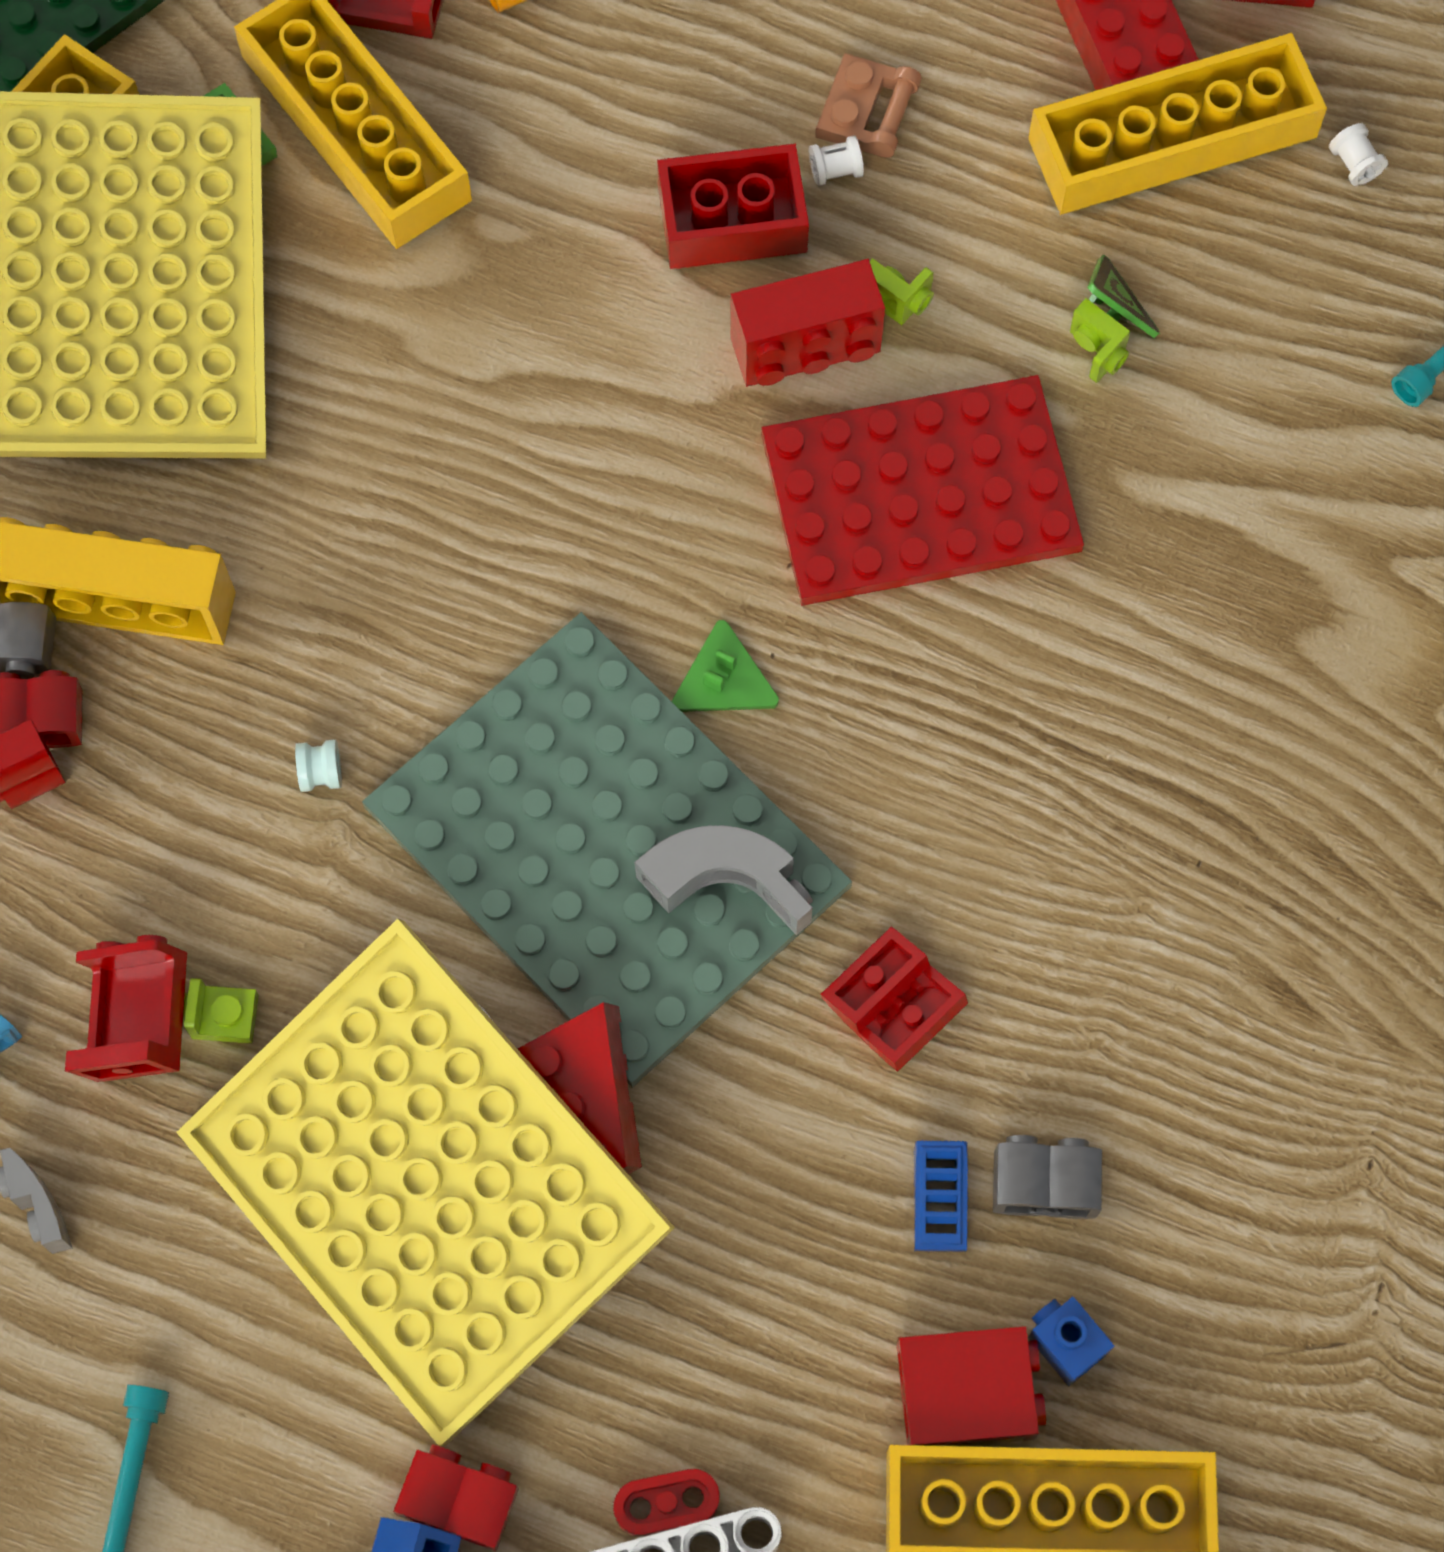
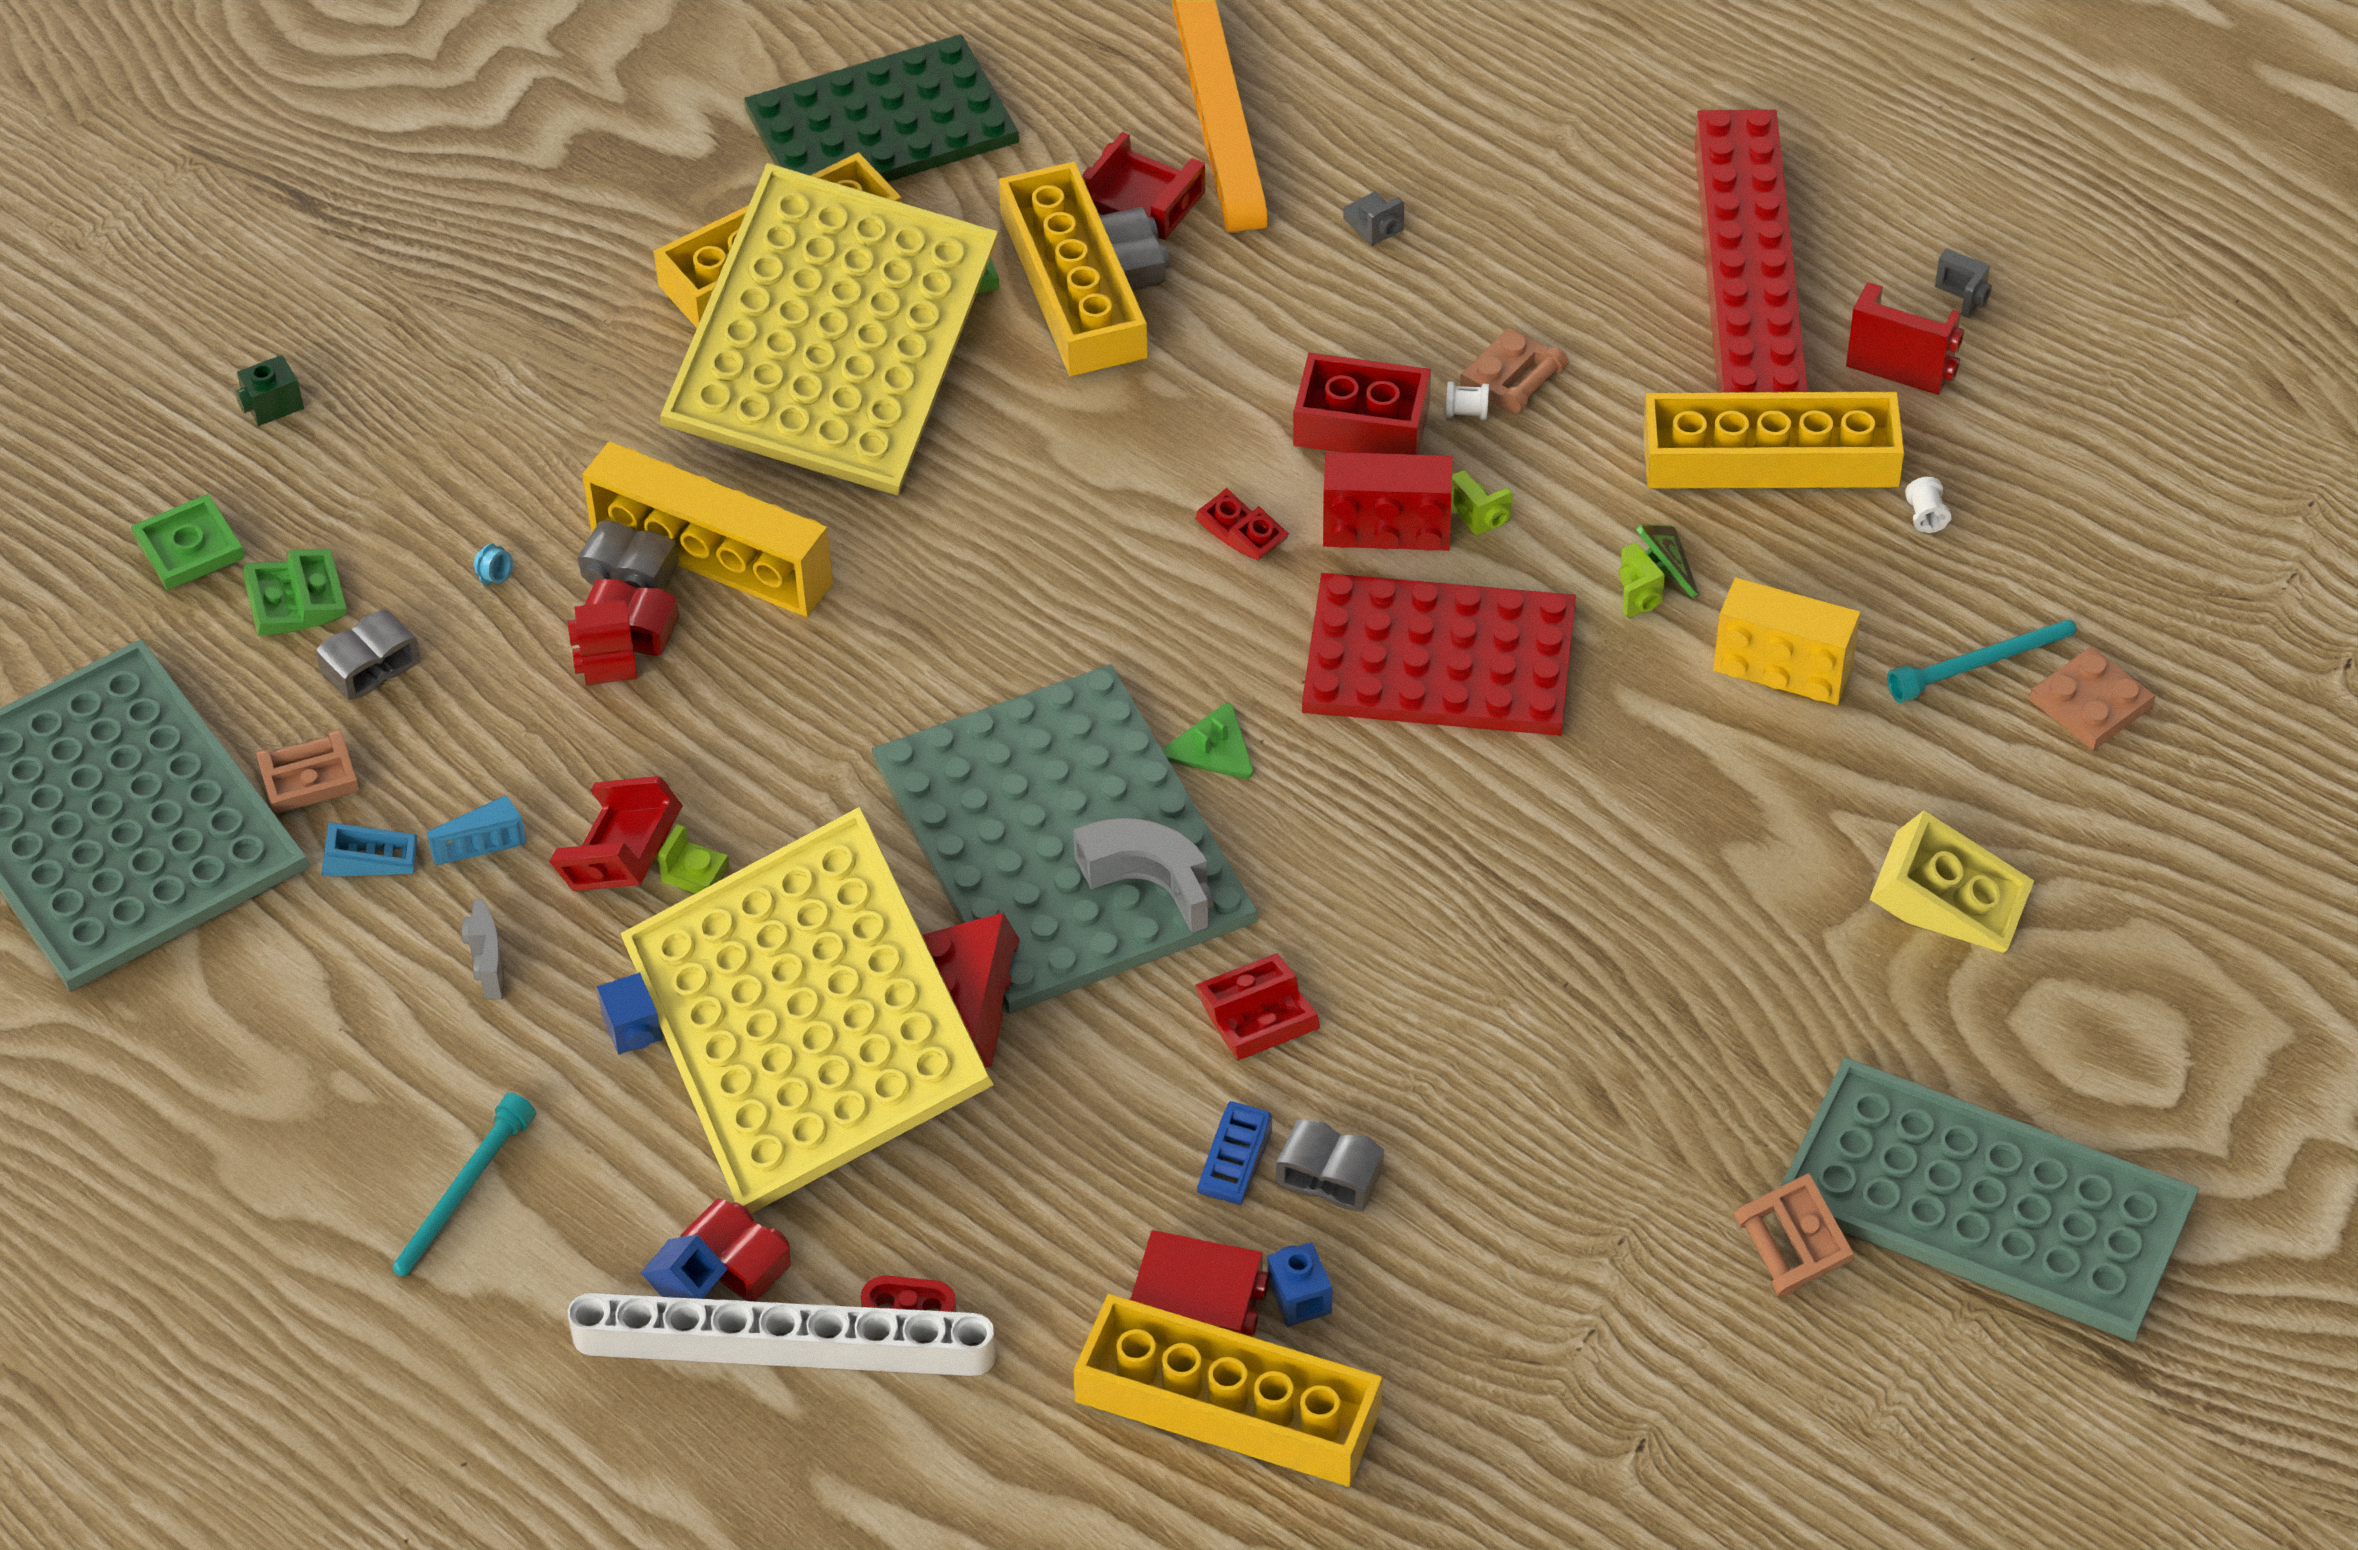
camera: 20 degrees right, 20 degrees down
(226, 1234) = (629, 1013): none -> blue brick
(318, 765) = (846, 713): light aqua wheel -> none
(408, 61) = (1136, 246): none -> flat silver brick
(653, 392) = (1244, 530): none -> red slope
(1286, 378) = (1786, 641): none -> yellow brick

